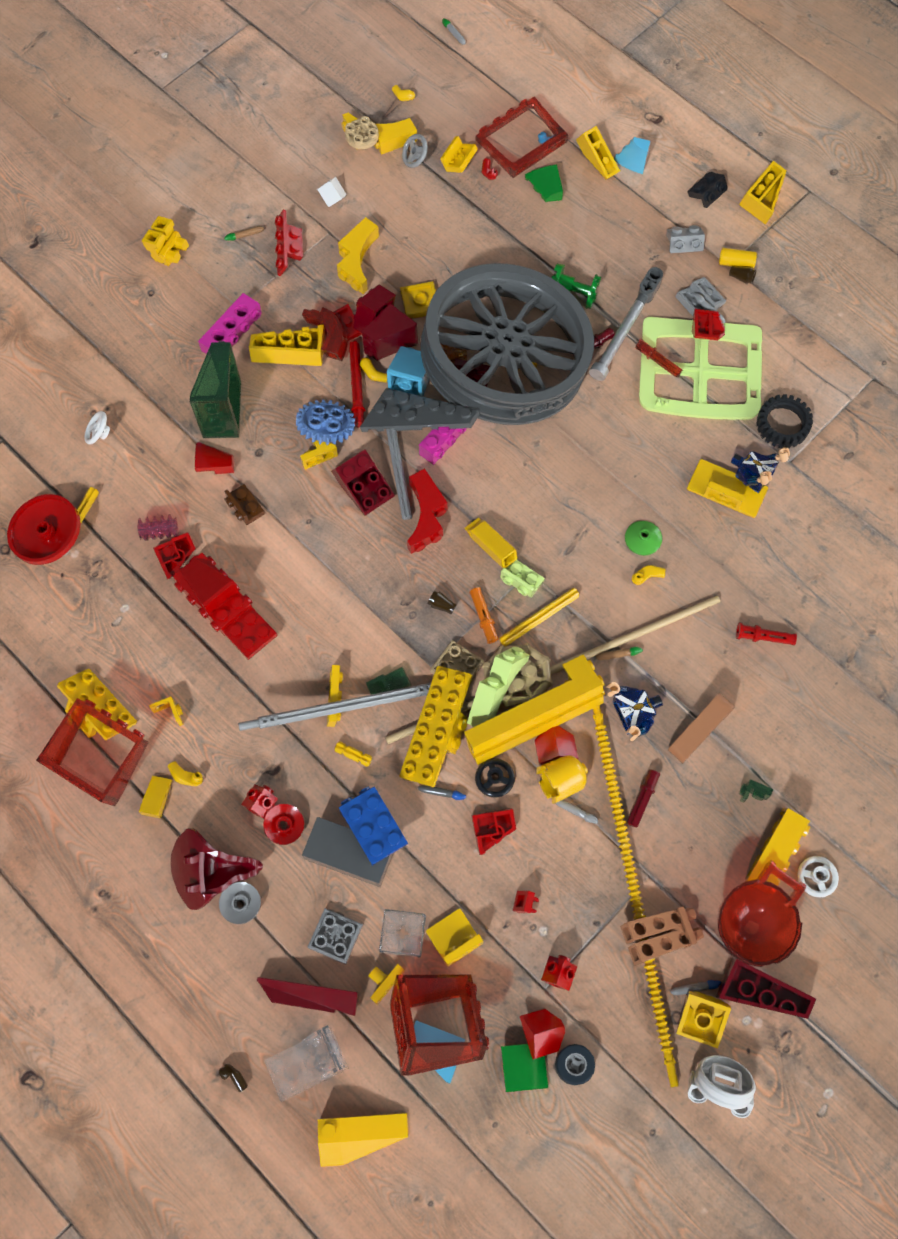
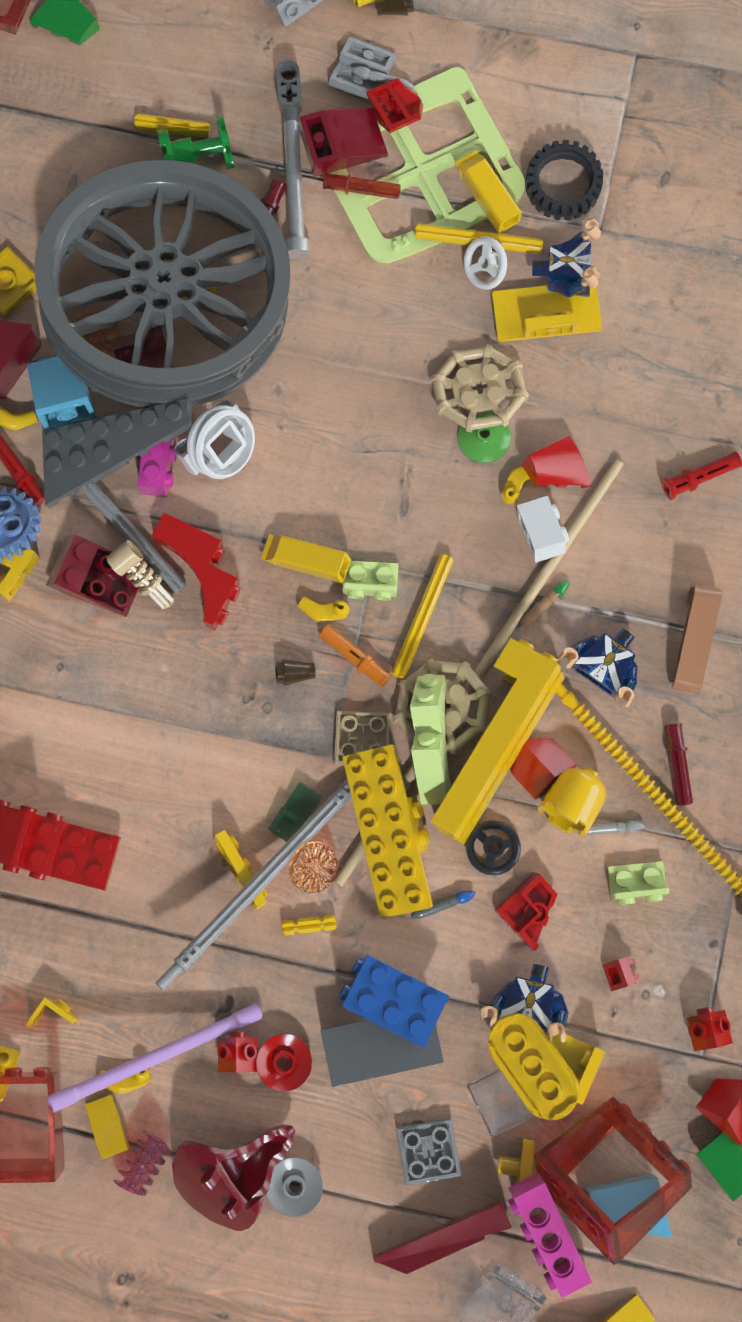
camera: 30 degrees left, 10 degrees up
(147, 756) = (74, 1093): none -> lavender piece
(161, 831) = (144, 1164): none -> clear pink piece
(373, 1069) = (571, 1273): none -> dark pink brick
(377, 720) = (313, 867): none -> clear orange wheel
(386, 480) = (127, 560): none -> tan piece
(432, 921) = (533, 1066): none -> yellow tile
(455, 883) = (533, 999): none -> torso
(465, 447) = (196, 450): none -> white piece
(482, 580) = (324, 612): none -> yellow arm
(569, 269) = (174, 125): none -> yellow axle
(571, 853) = (637, 881): none -> yellowish green bracket
(644, 608) = (542, 529): none -> white brick
(654, 498) = (479, 374): none -> tan plate
(663, 326) = (341, 139): none -> dark red slope
(677, 576) = (557, 466): none -> slope
(708, 440) = (492, 262): none -> white piece
(711, 425) = (466, 236): none -> yellow axle
(733, 402) = (488, 191): none -> yellow piece

